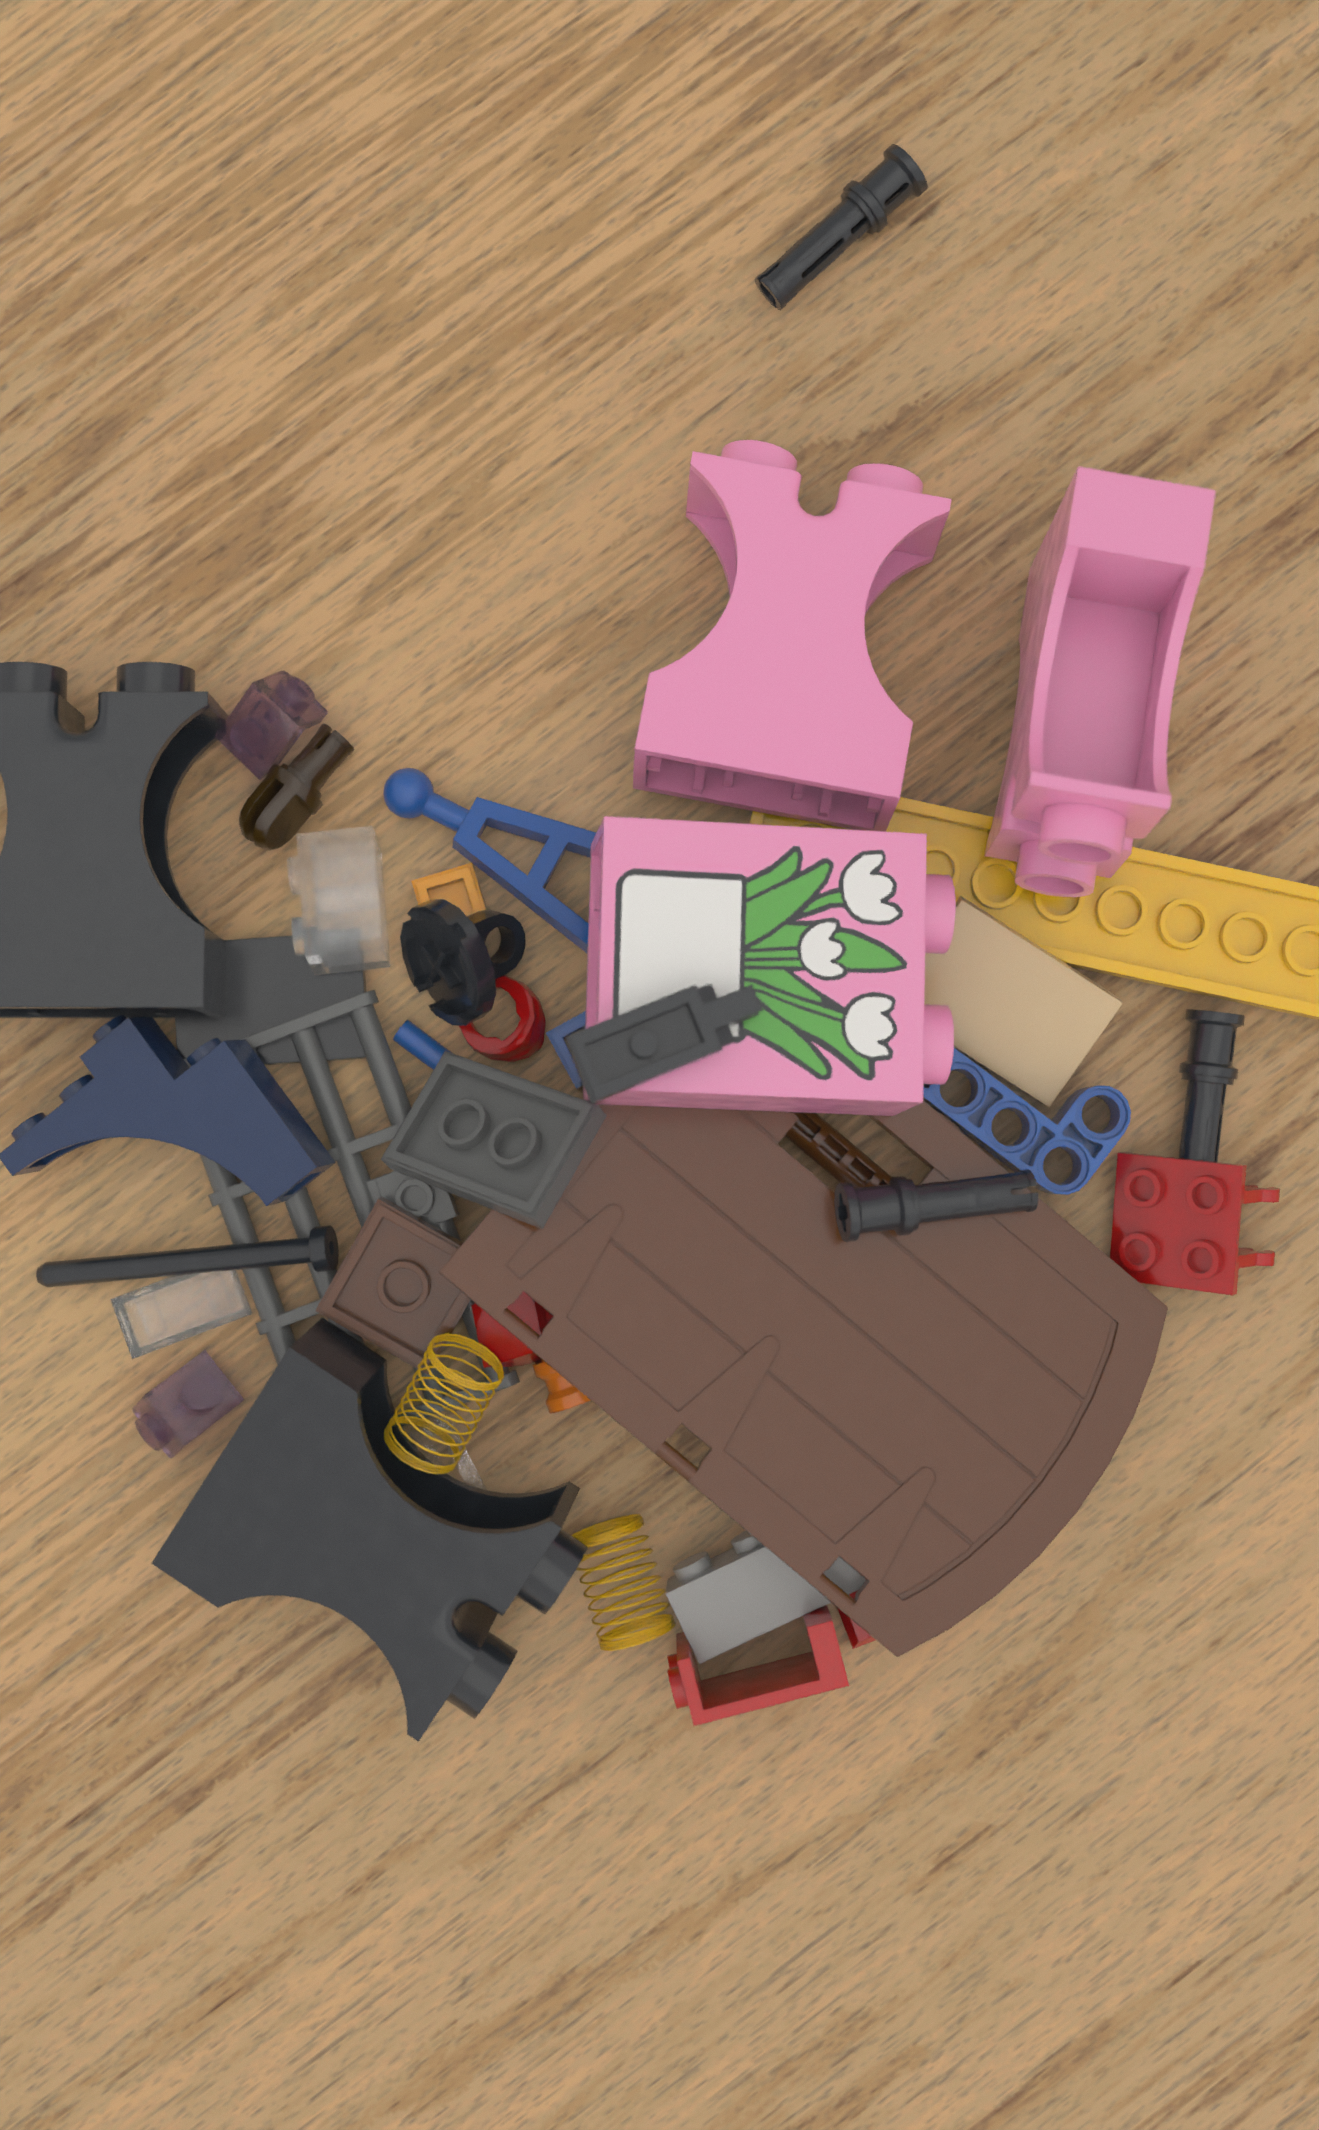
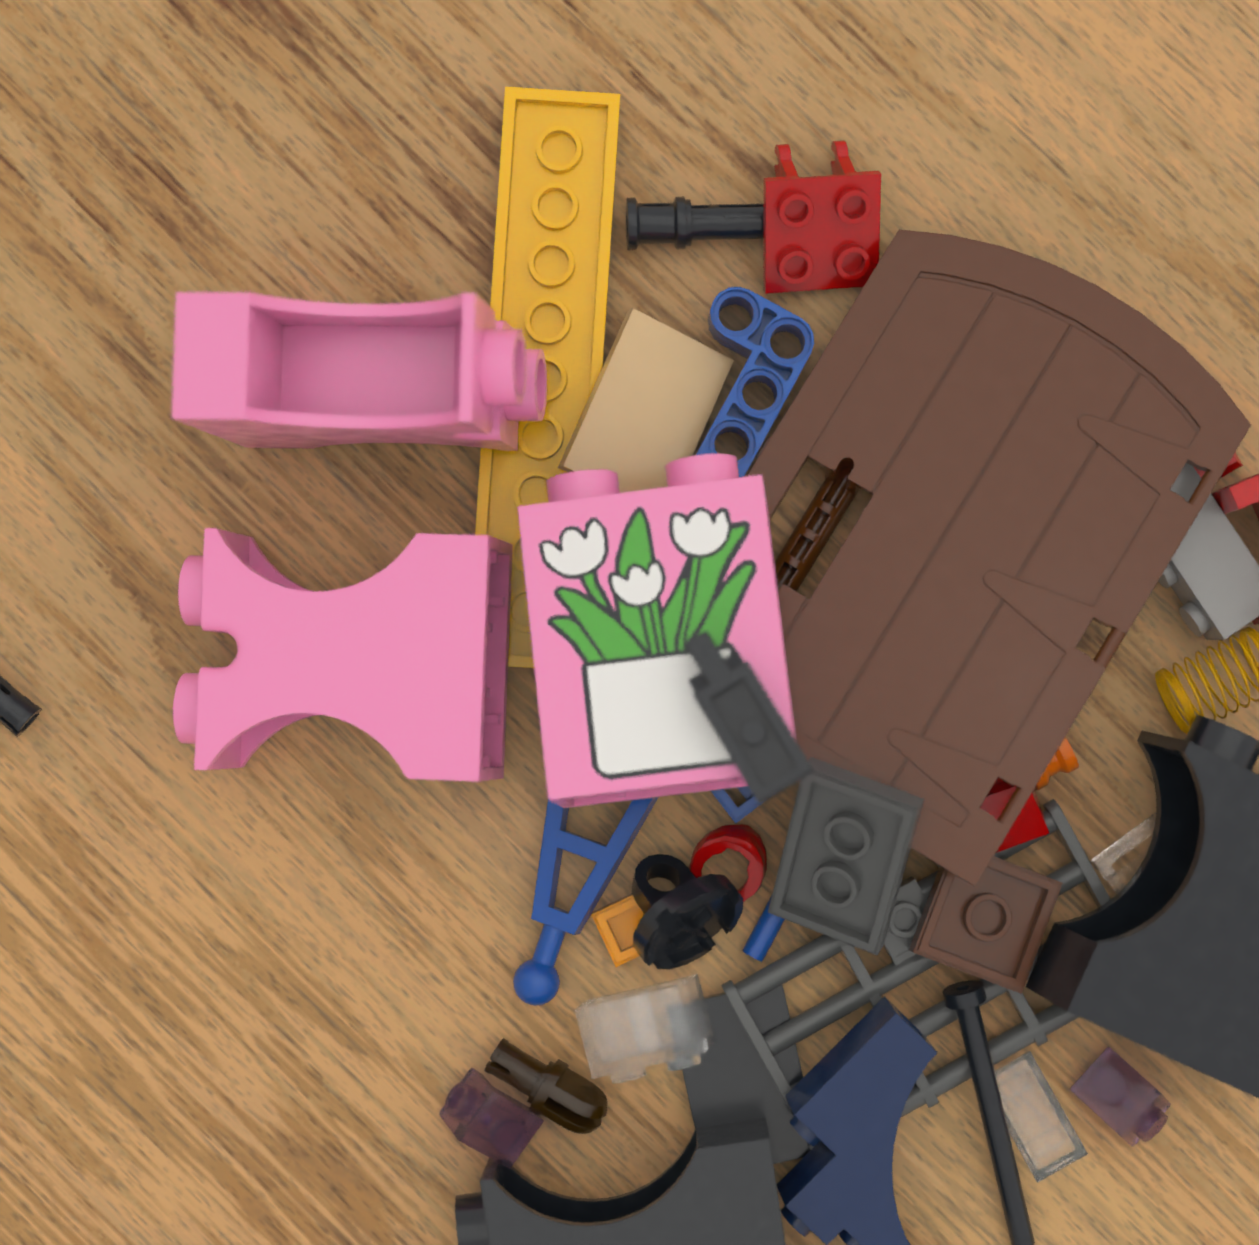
camera: 105 degrees left, 0 degrees up
(448, 1373) = (1039, 830): yellow piece -> none
(905, 1205) = (847, 476): black pin -> none

